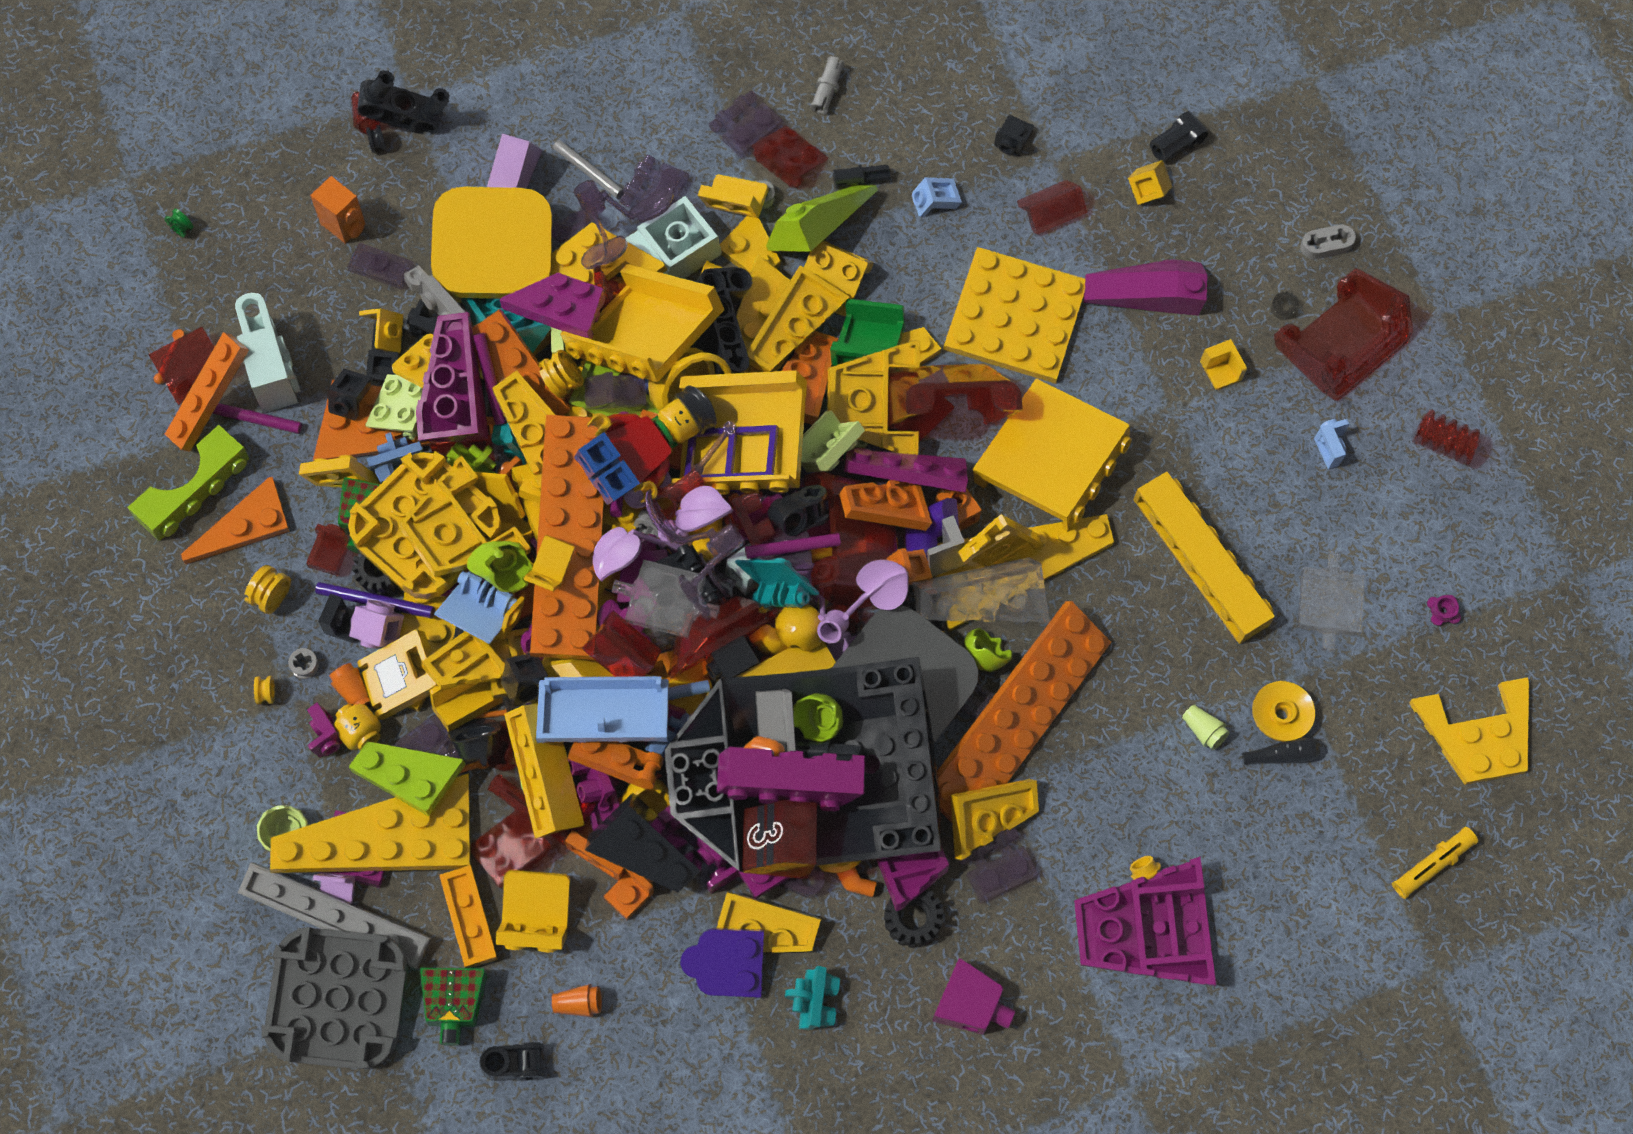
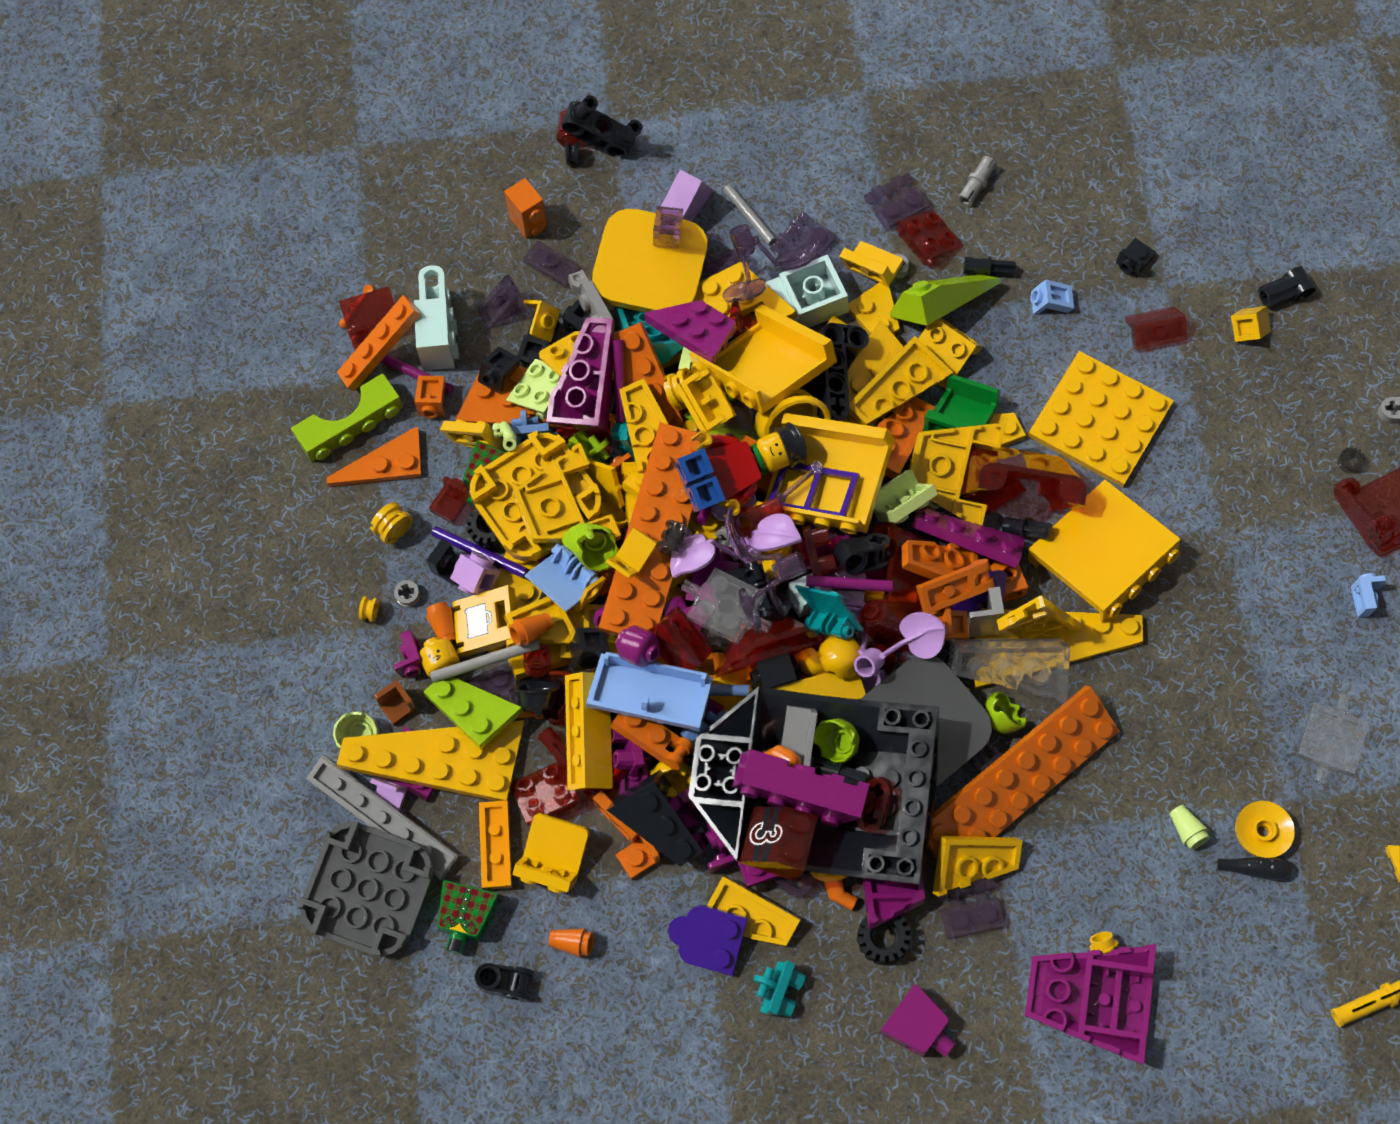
camera: 20 degrees right, 0 degrees up
(179, 222) = (391, 193): green bush -> none
(278, 439) = (430, 396): none -> orange bracket
(319, 786) = (395, 702): none -> dark orange panel
(335, 320) = (501, 304): none -> clear purple slope
(374, 460) = (509, 437): none -> yellowish green arm
(411, 717) = (484, 660): none -> light grey bar
(453, 671) = (530, 628): none -> orange cone
(465, 697) = (542, 656): none -> clear red wheel
(504, 199) = (667, 227): none -> slope
(579, 663) = (637, 646): none -> magenta head
(591, 380) = (705, 400): none -> yellow hinge
(591, 538) = (673, 538): none -> clear smoke bush
(881, 777) = (881, 806): none -> clear red beam
(906, 525) = (955, 586): none -> orange plate
(967, 447) = (1028, 528): none -> black axle
(1155, 286) = (1234, 419): magenta wedge -> none
(1204, 557) = (1223, 674): yellow brick -> none
(1223, 364) = (1281, 502): yellow panel -> none

